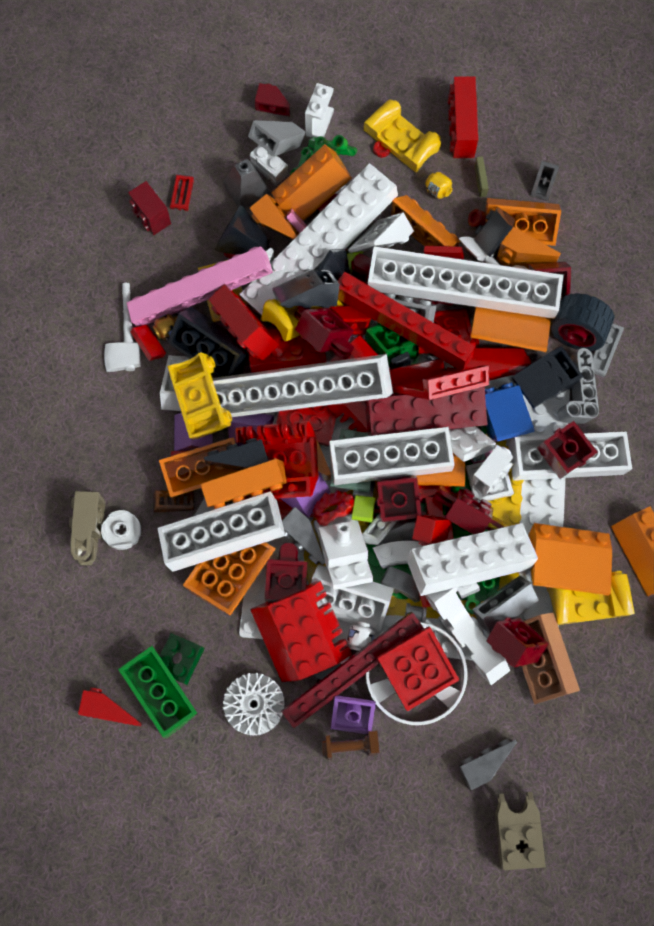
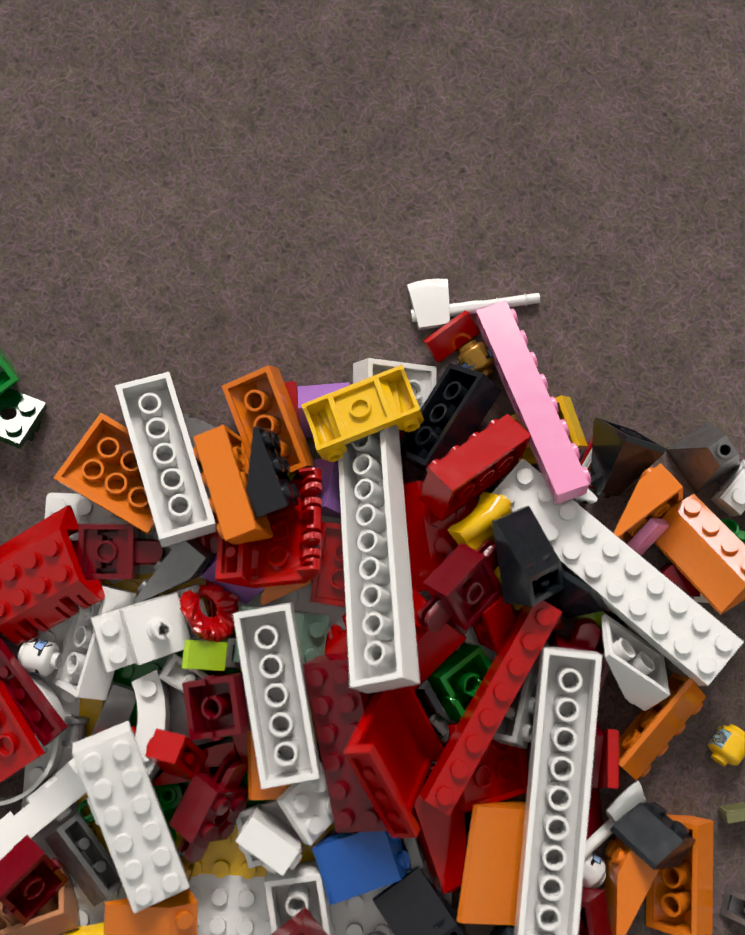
camera: 85 degrees right, 10 degrees up
(86, 525) = (180, 278): dark tan brick -> none
(113, 523) = (192, 313): white plate -> none
(149, 208) = (653, 317): dark red brick -> none
(173, 507) = (215, 370): reddish brown slope -> none
(179, 206) = (687, 374): red tile -> none
(476, 218) = (679, 804): dark red tile -> none

